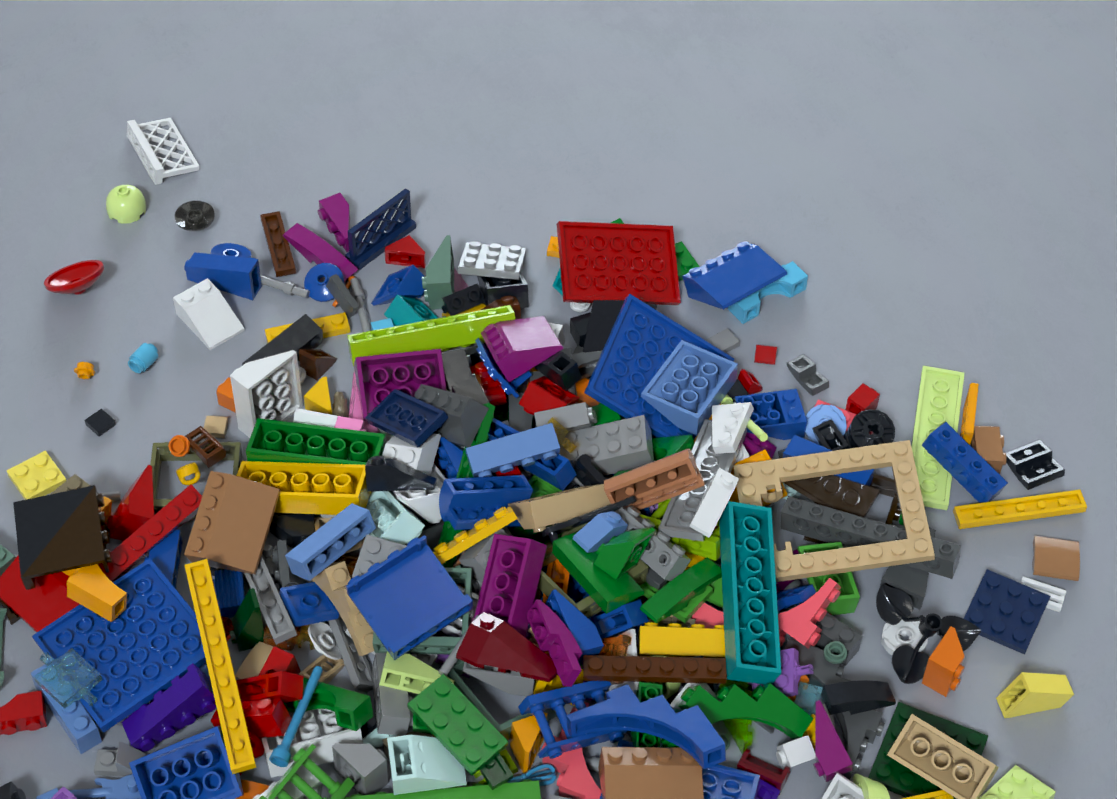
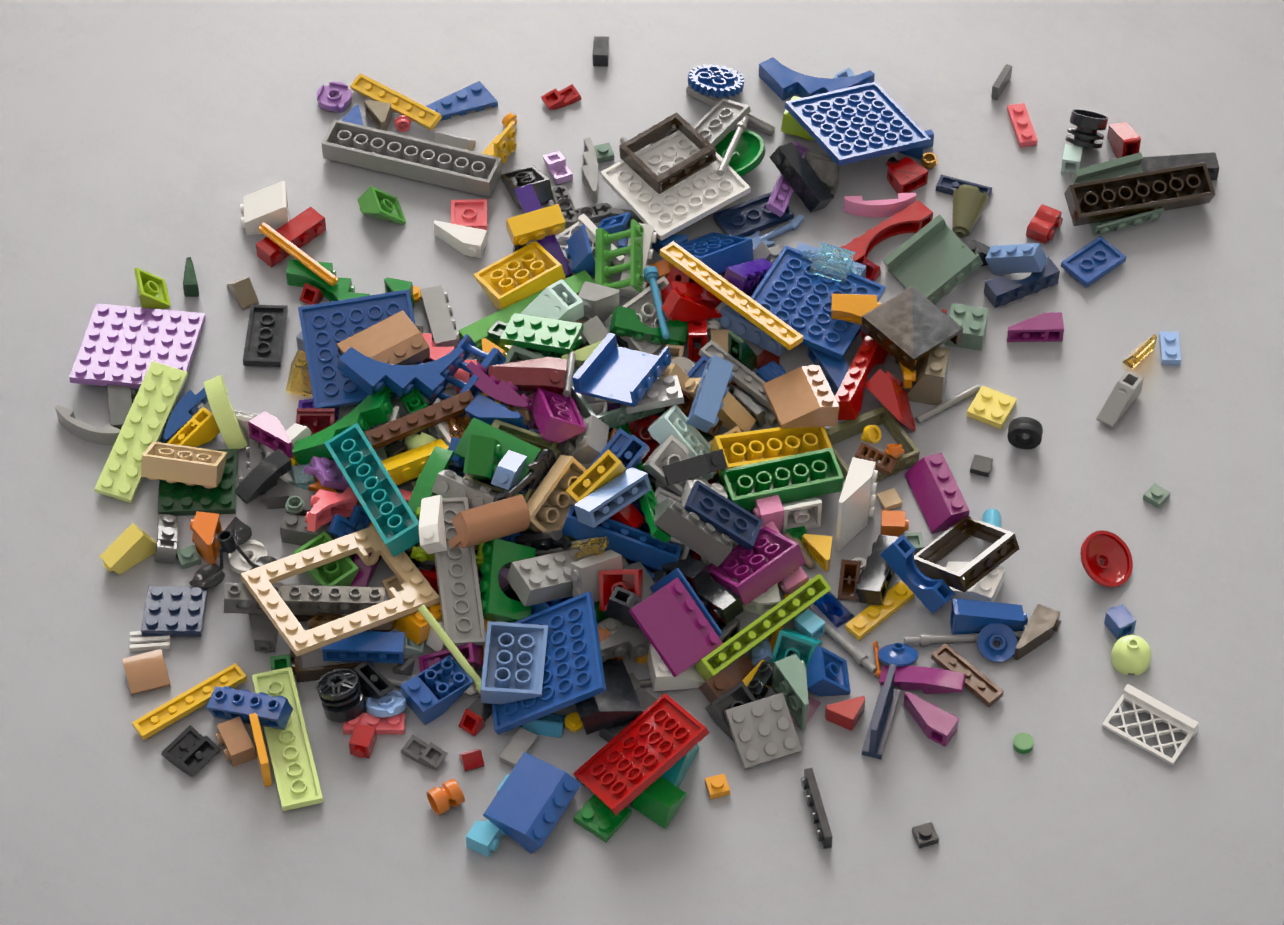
camera: 155 degrees right, 0 degrees up
(22, 685) = (872, 270): none -> red slope
(35, 420) = (1025, 433): none -> black tyre
(84, 370) = (1029, 497): light orange plate -> none
(110, 230) = (1120, 621): none -> brick
(167, 404) = (936, 493): none -> magenta slope
(179, 250) = (1038, 630): none -> slope
(190, 293) = (1003, 546): none -> dark brown window
(194, 215) = (1060, 660): clear smoke dish -> none
(225, 370) = (916, 540): none -> sand green plate
(258, 318) = (929, 591): none -> blue arch
(276, 179) = (1023, 743): none -> tile
(342, 295) = (869, 639): dark grey tile -> none
(342, 351) = (834, 609): none -> clear blue slope
(412, 147) = (925, 835): none -> plate
(481, 530) = (600, 437): yellow plate -> none
(486, 195) = (818, 815): none -> black plate
(518, 473) = (596, 476): none -> yellow brick
(729, 425) = (458, 624): white wing -> none
(810, 321) = (444, 797): none -> orange wheel
(973, 672) = (188, 557): none -> sand green plate
(988, 696) = (166, 538): none -> dark grey plate

